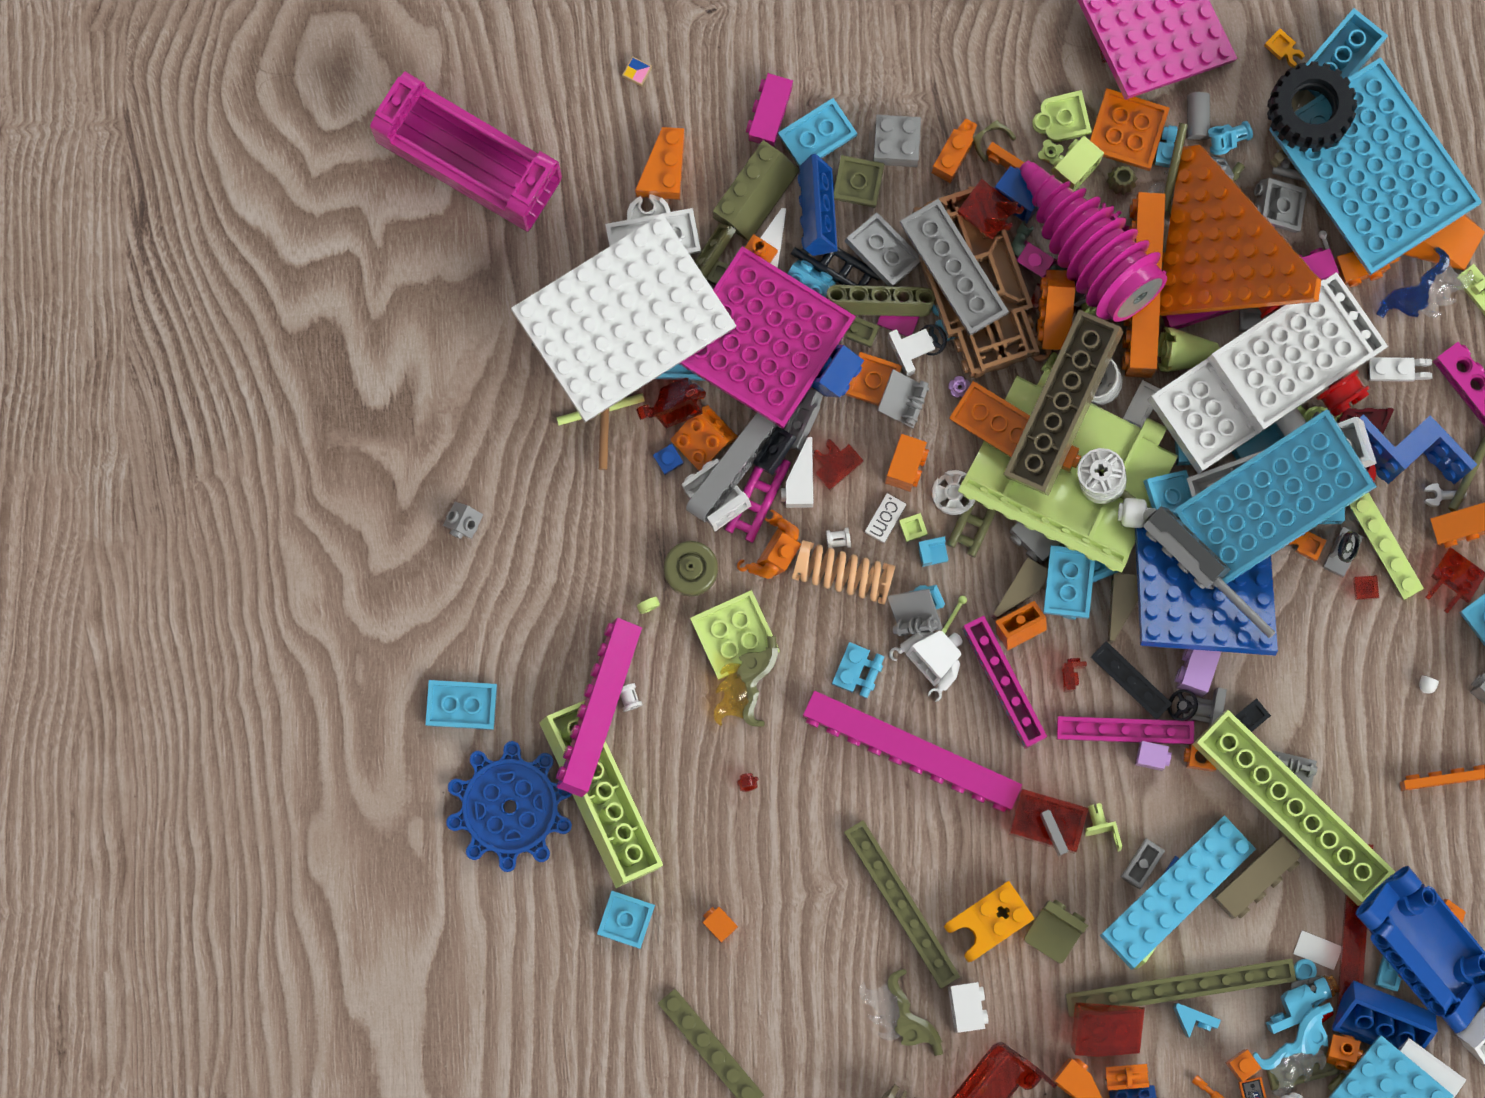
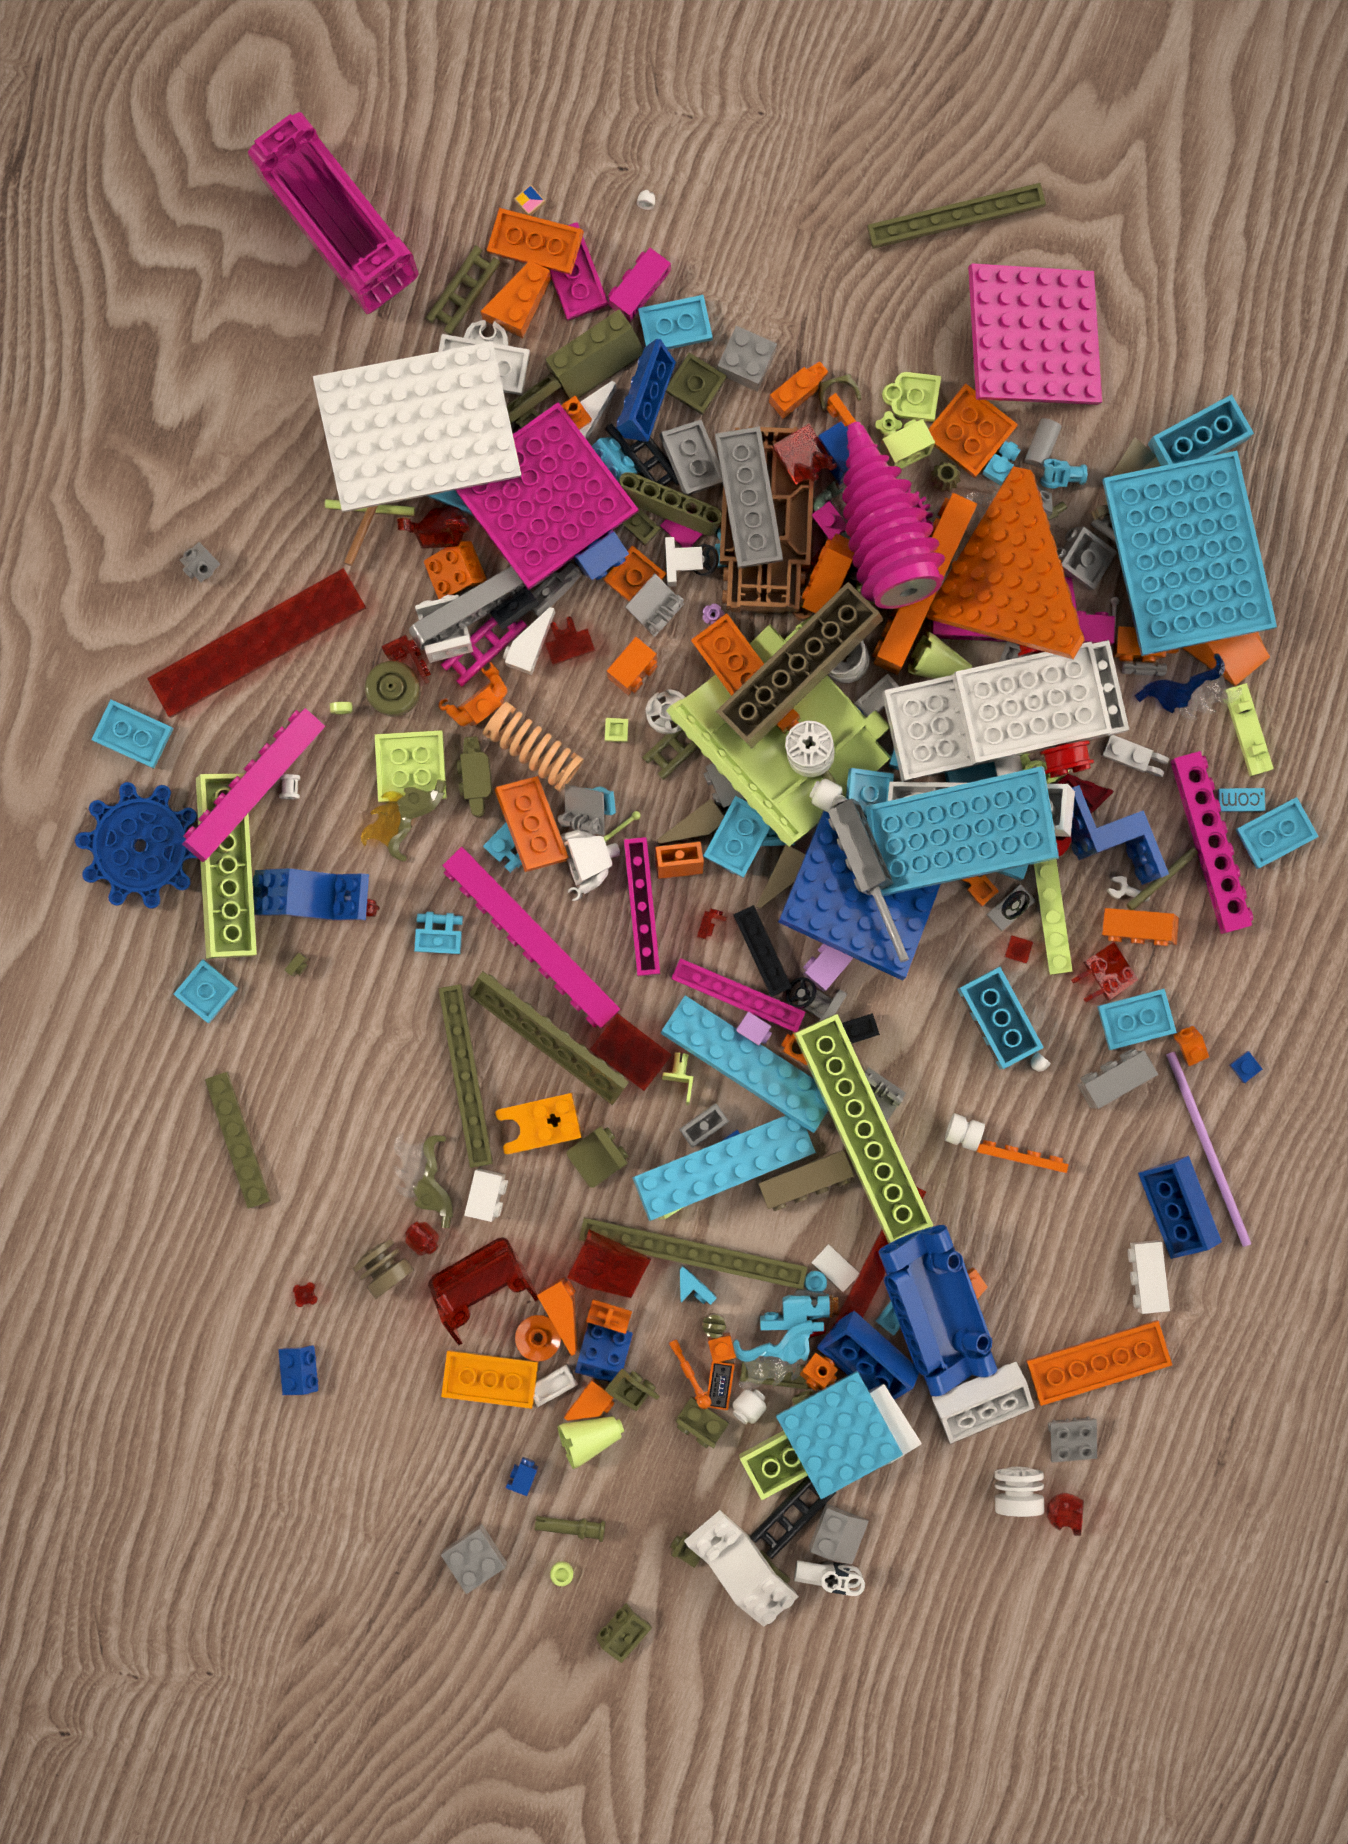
camera: 25 degrees right, 5 degrees up
(545, 575) = (256, 643): none -> clear red plate
(614, 188) = (461, 276): none -> olive bar
(658, 106) = (535, 240): none -> orange plate
(668, 459) = (414, 578): blue plate -> none
(682, 531) = (398, 650): none -> clear red bracket
(693, 788) = (310, 894): none -> blue bracket
(702, 121) = (582, 289): none -> dark pink tile
(703, 861) = (297, 965): none -> olive plate
(719, 923) = (289, 1028): orange brick -> none
(745, 31) = (646, 200): none -> white hinge
(799, 619) = (475, 775): none -> olive hinge
(826, 787) = (438, 941): none -> medium azure plate
(838, 534) = (542, 709): white bush -> none
(870, 644) = (531, 824): none -> orange plate
(885, 518) = (594, 711): white tile -> none
(922, 1073) = (422, 1238): none -> clear red head
(932, 551) = (626, 759): medium azure panel -> none
(966, 838) = (548, 1038): none -> olive plate
(1053, 832) = (628, 1065): light grey tile -> none
(1159, 790) = (746, 1063): none -> medium azure plate
(1174, 165) = (995, 487): olive bar -> none
(1228, 1046) = (713, 1325): none -> olive arm
(1282, 45) = (1149, 406): light orange plate -> none
(1323, 81) = (1168, 449): black tyre -> none
(1375, 285) = (1144, 668): none -> light grey axle
(1375, 657) = (1000, 1018): none -> medium azure brick
(1389, 775) = (964, 1132): none -> white wheel

